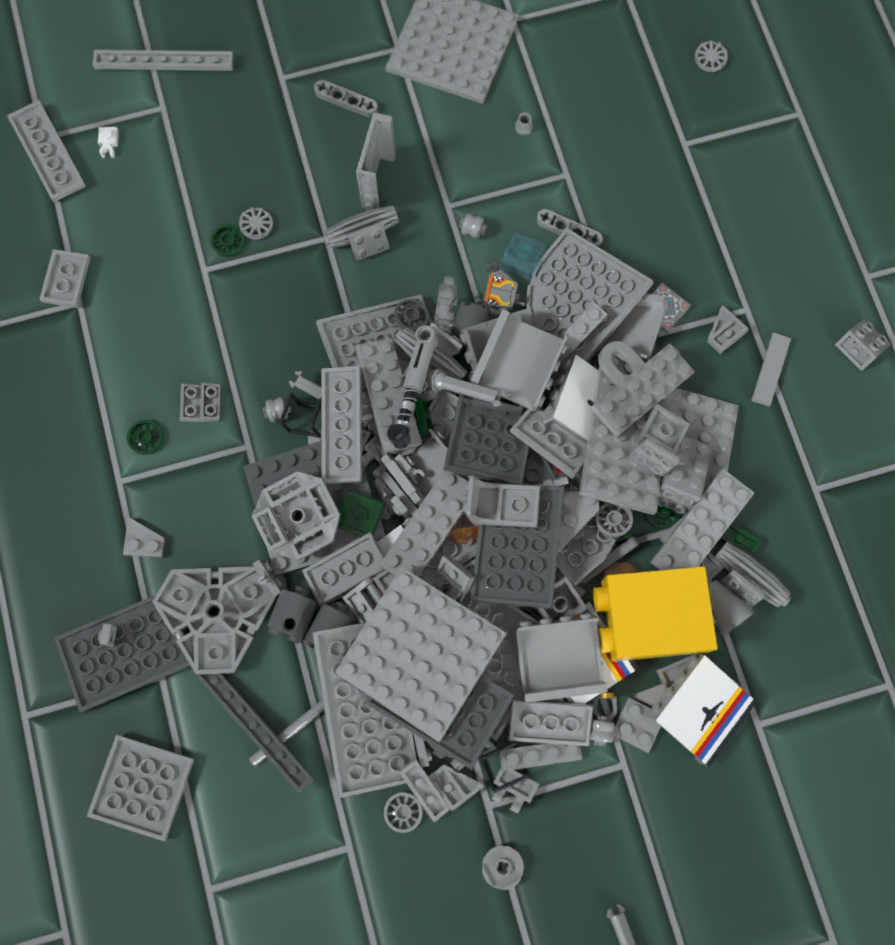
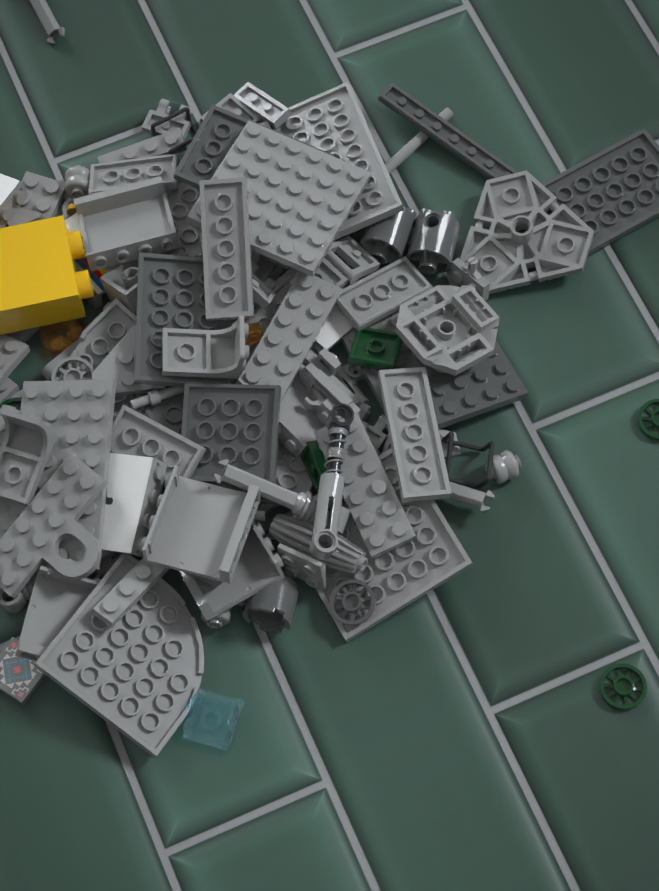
camera: 175 degrees right, 10 degrees down
(107, 635) = (635, 195): light grey plate -> none
(140, 788) = (559, 74): light grey plate -> none
(142, 541) = (627, 304): light grey wing -> none
(199, 403) = (603, 468): light grey slope -> none
(256, 223) = (590, 714): light grey wheel -> none
(363, 232) = (438, 716): light grey plate -> none
(377, 146) = (430, 831): light grey panel -> none
(403, 812) = (282, 88): light grey wheel -> none
(445, 303) = (309, 621): clear hips -> none
(472, 225) = (287, 747): light grey piece -> none
(474, 594) = (226, 249): none -> light grey plate
(491, 863) = (177, 66): light grey plate -> none
(500, 291) = (239, 651): torso -> none
(570, 224) = (151, 768): light grey beam -> none

